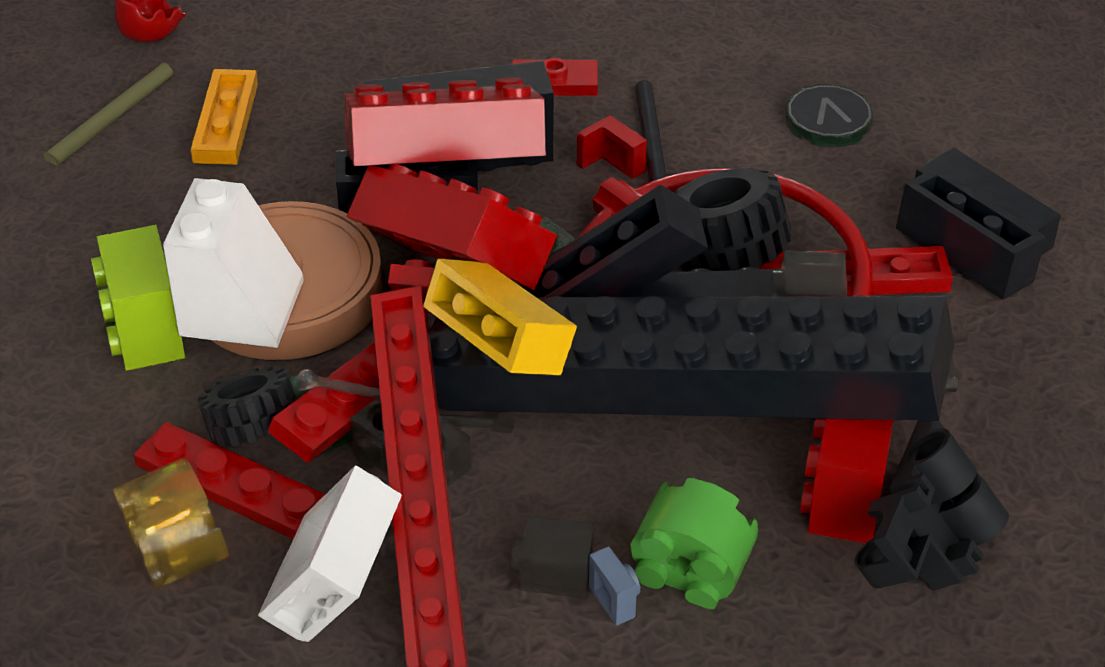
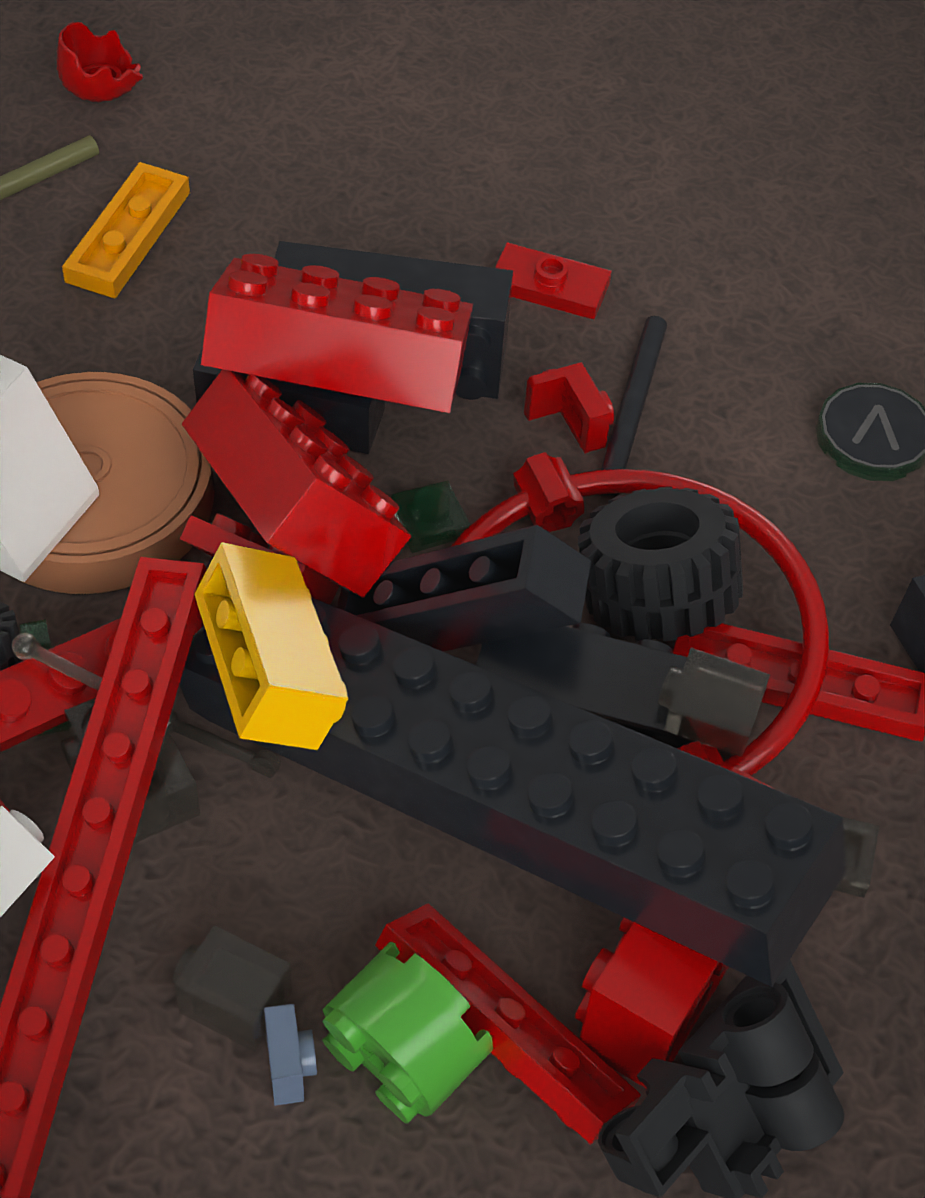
camera: 15 degrees right, 10 degrees up
(787, 536) = (523, 1032): none -> red plate

